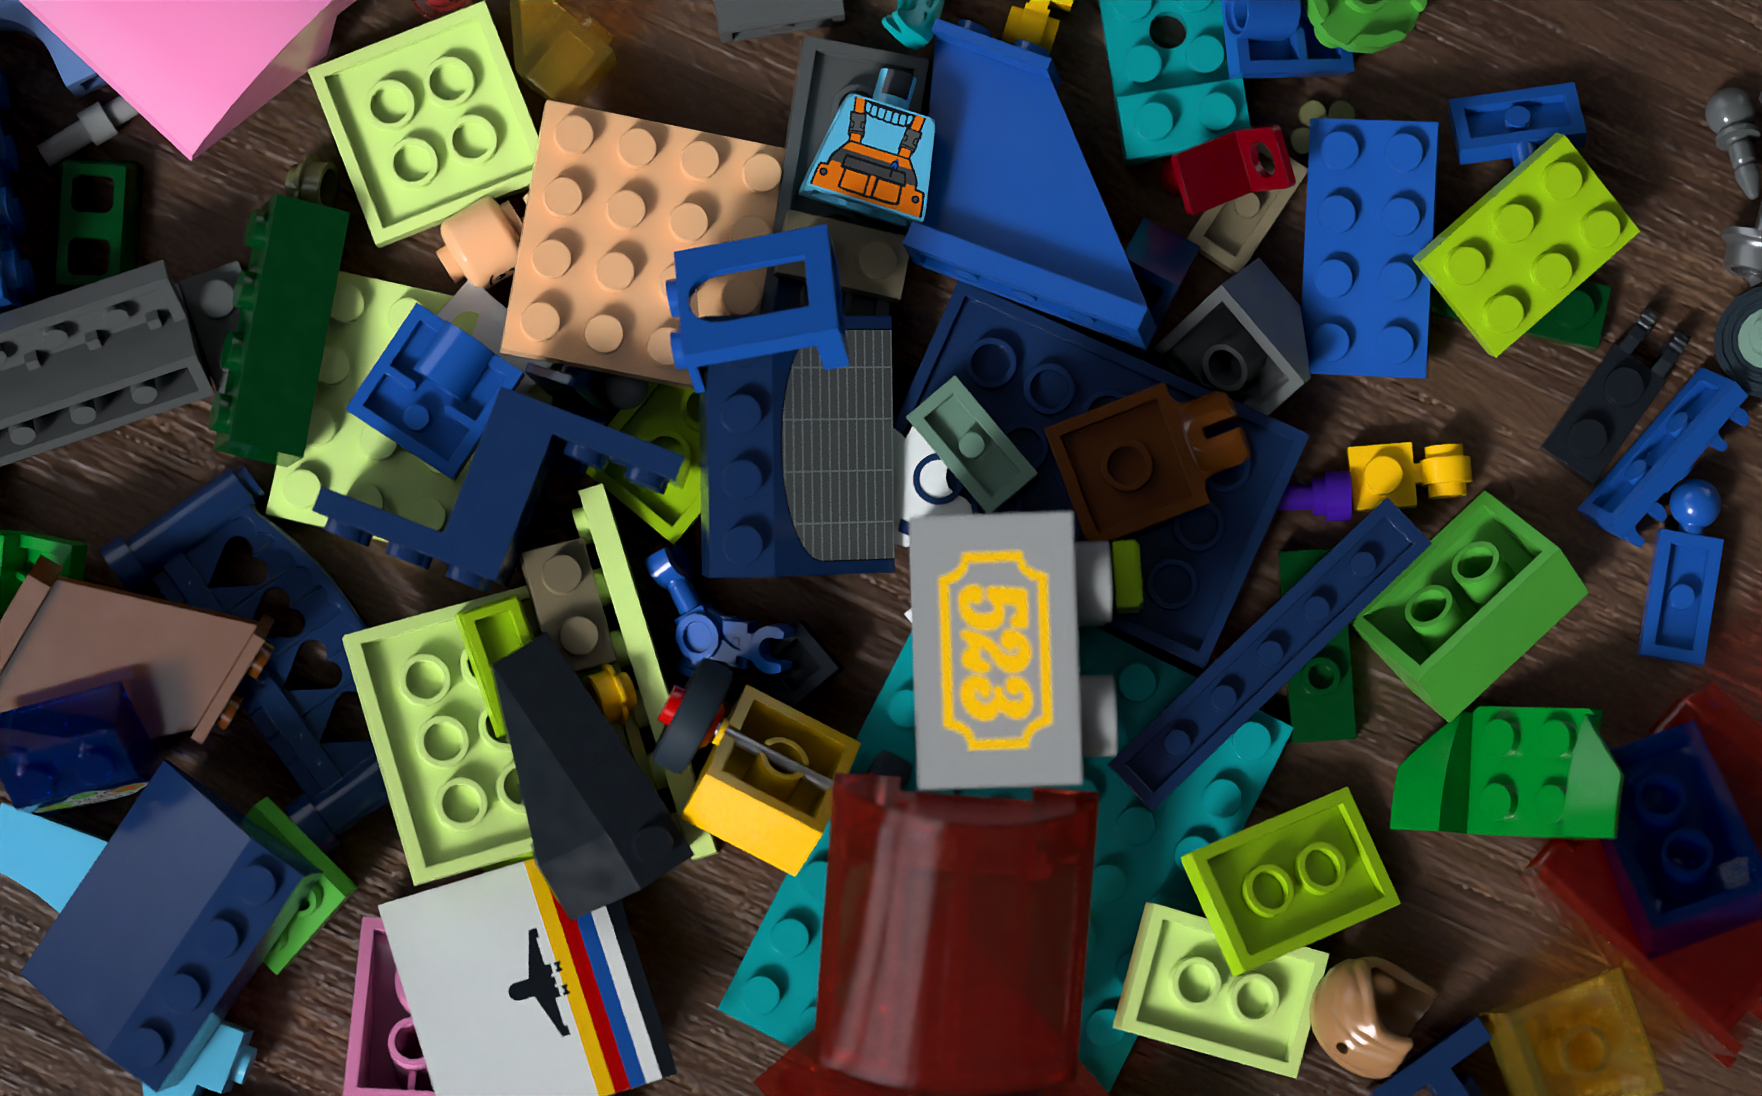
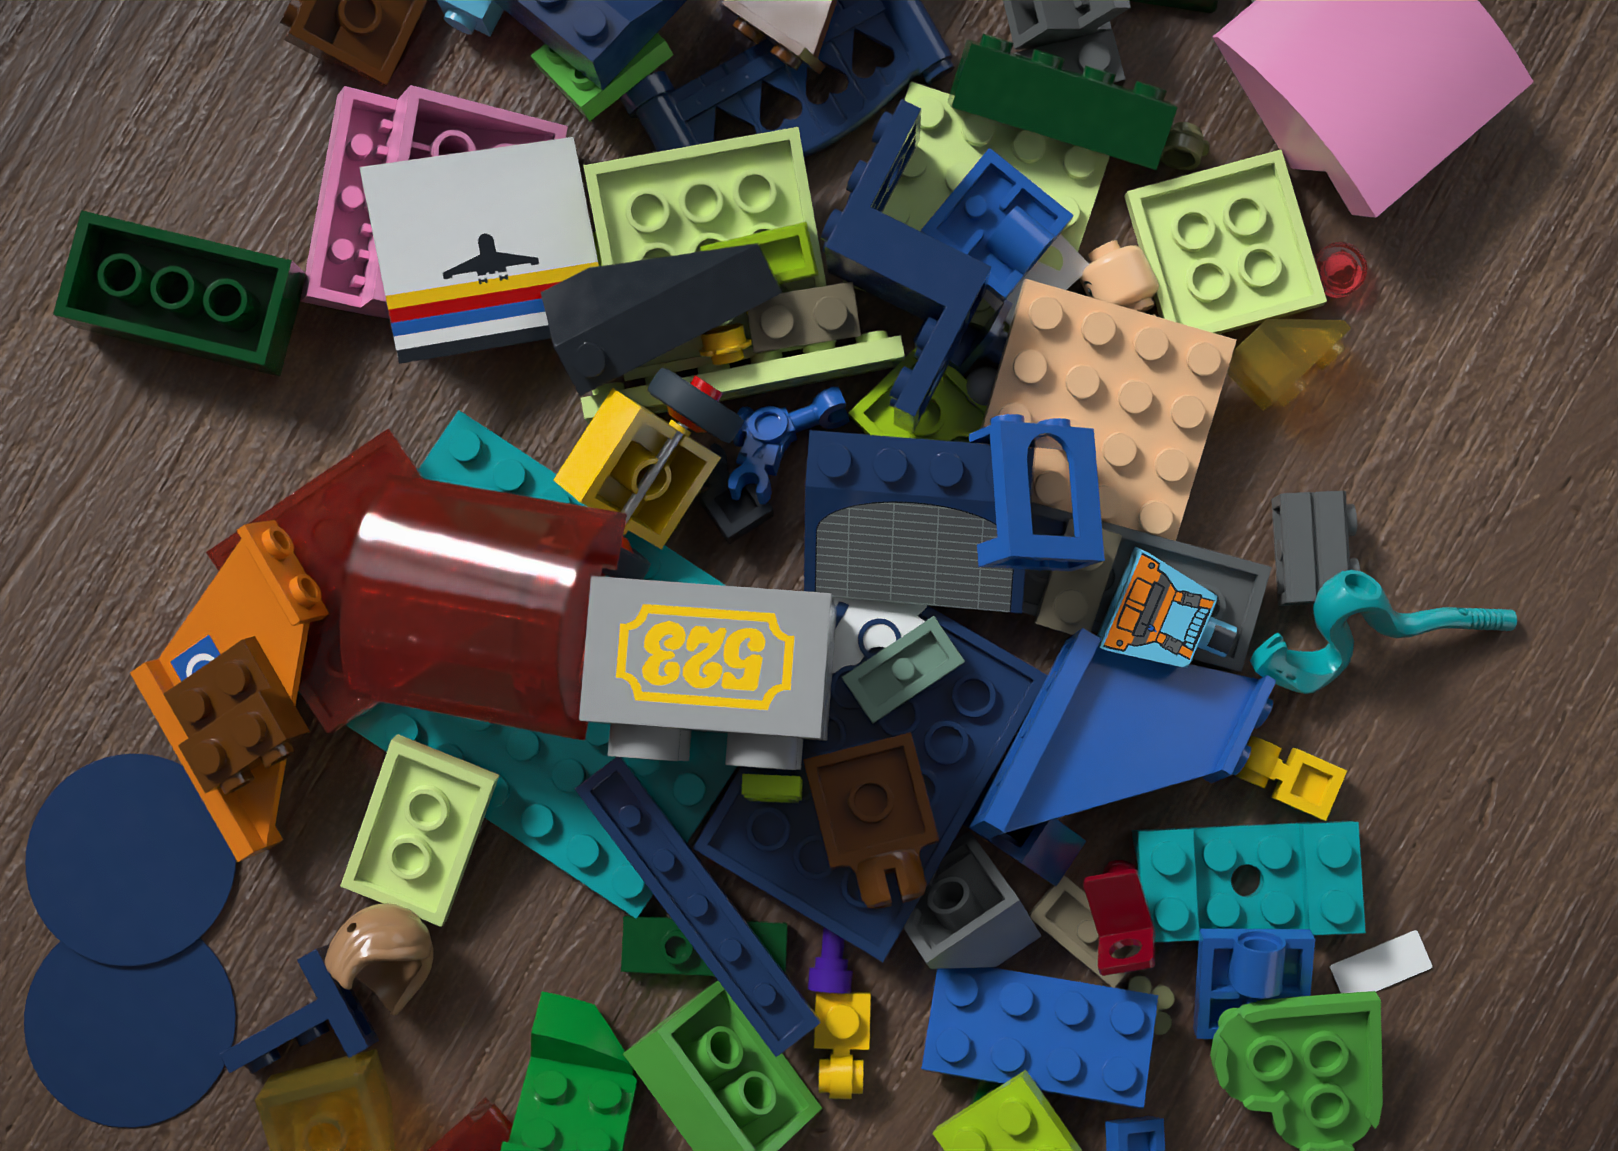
camera: 95 degrees right, 0 degrees up
(1290, 881) = (502, 900): lime plate -> none

